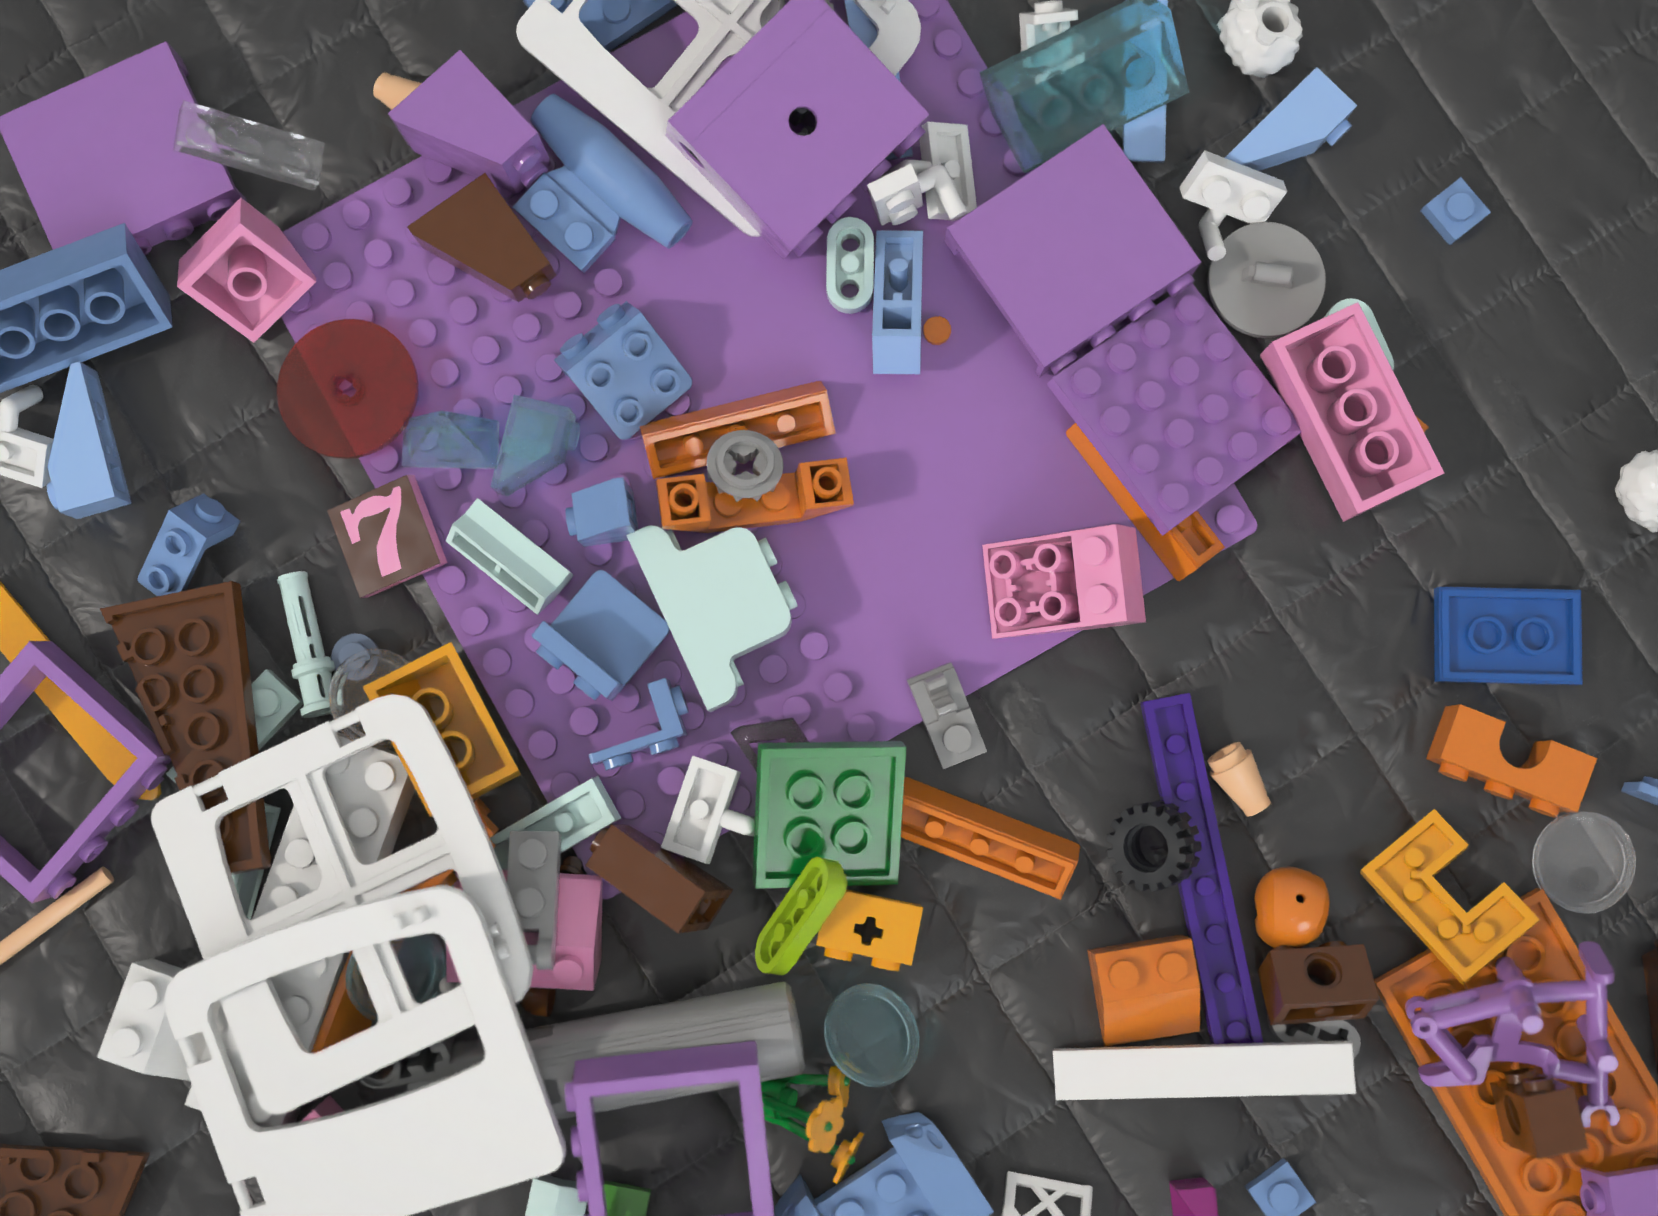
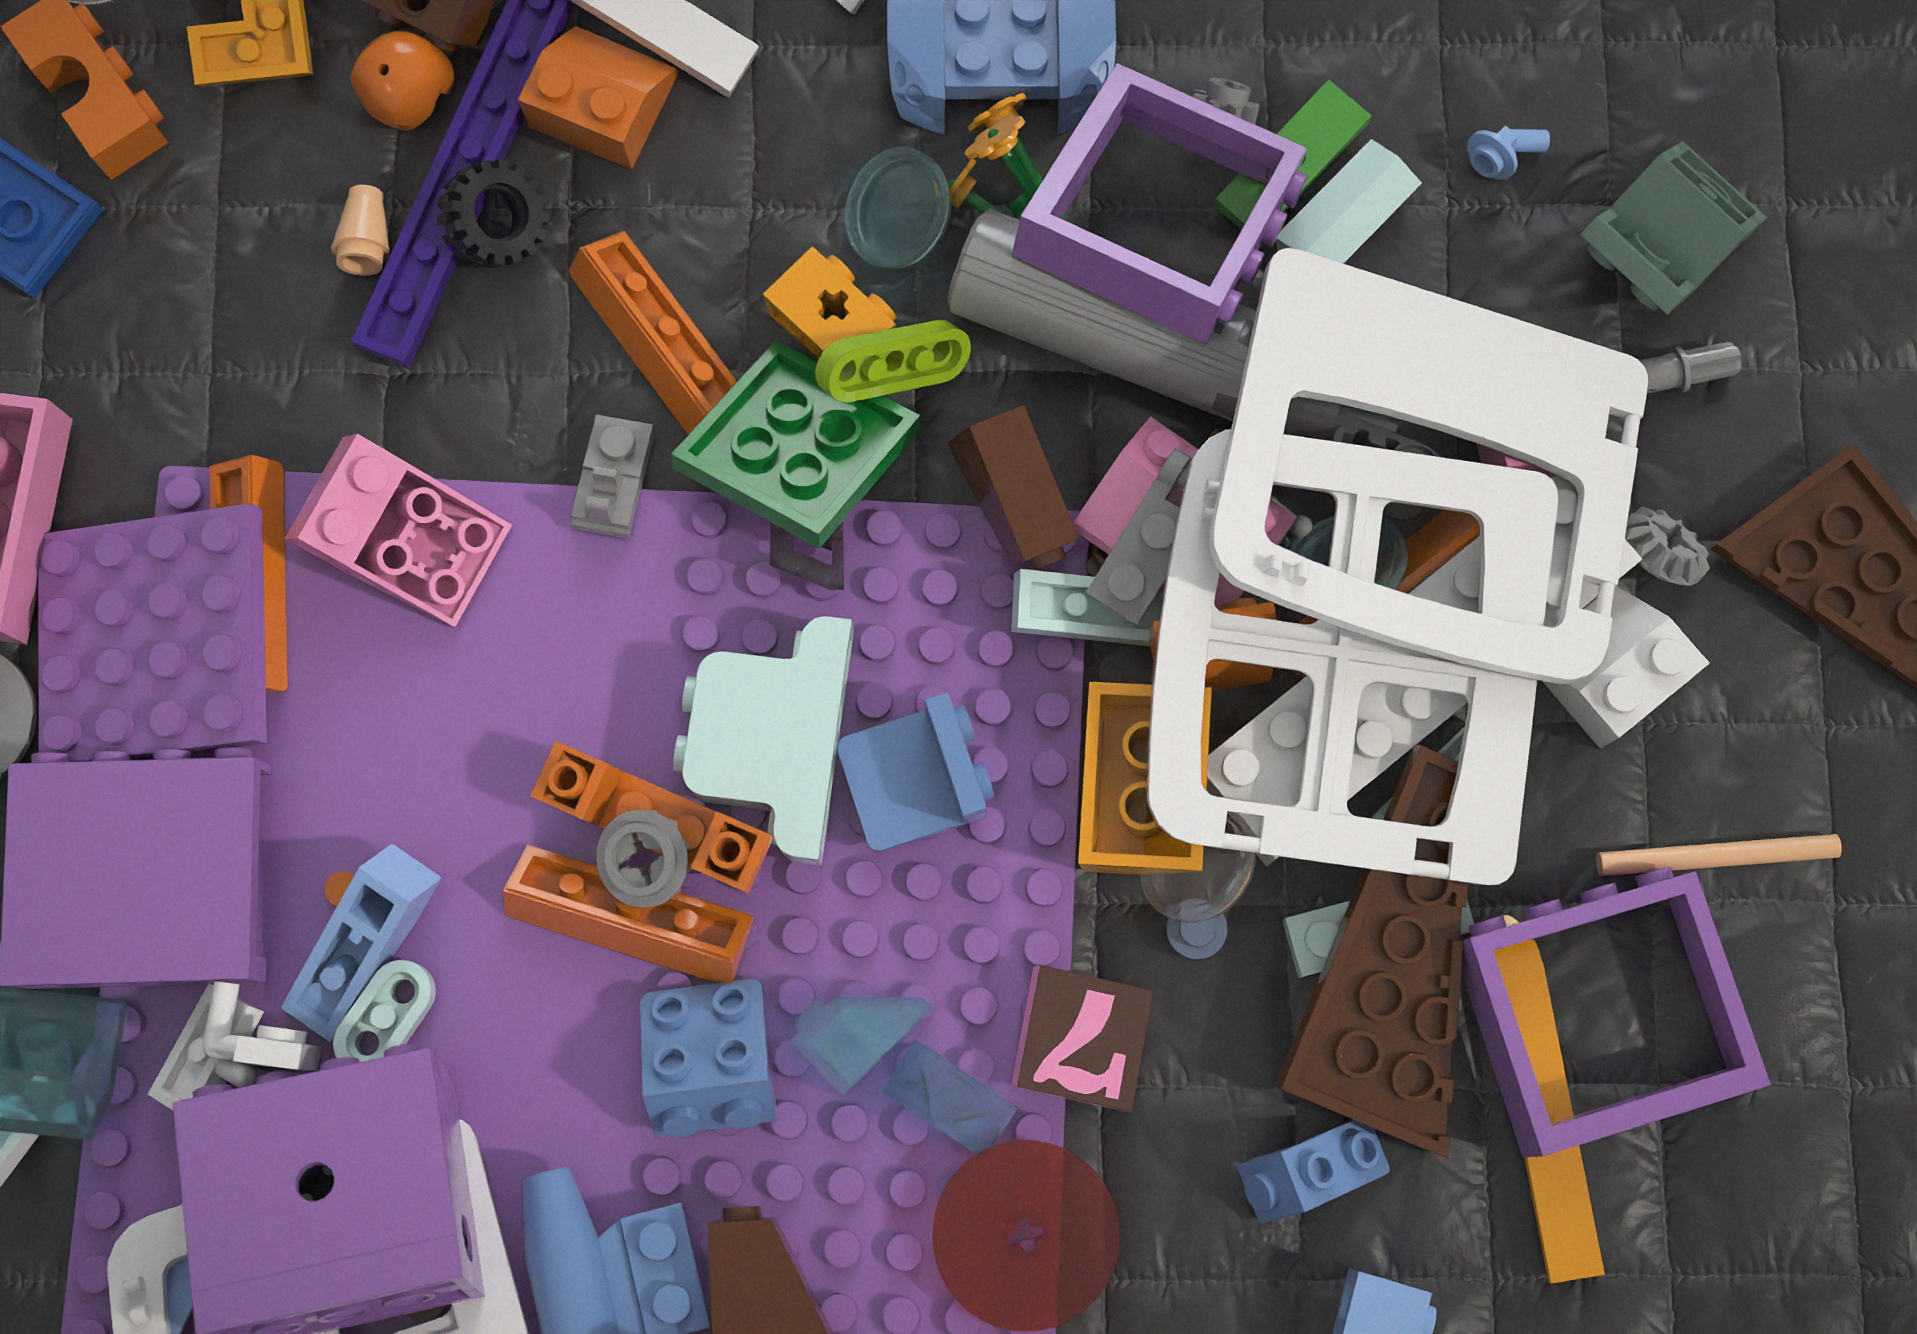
camera: 150 degrees left, 5 degrees down
(189, 1133) = (1666, 547): none -> light grey gear
(312, 666) = (1248, 945): light aqua pin -> none
(508, 557) = (962, 926): light aqua piece -> none
(602, 513) = (829, 900): medium blue slope -> none
(669, 707) = (890, 655): medium blue bracket -> none
(704, 810) = (923, 527): white plate -> none

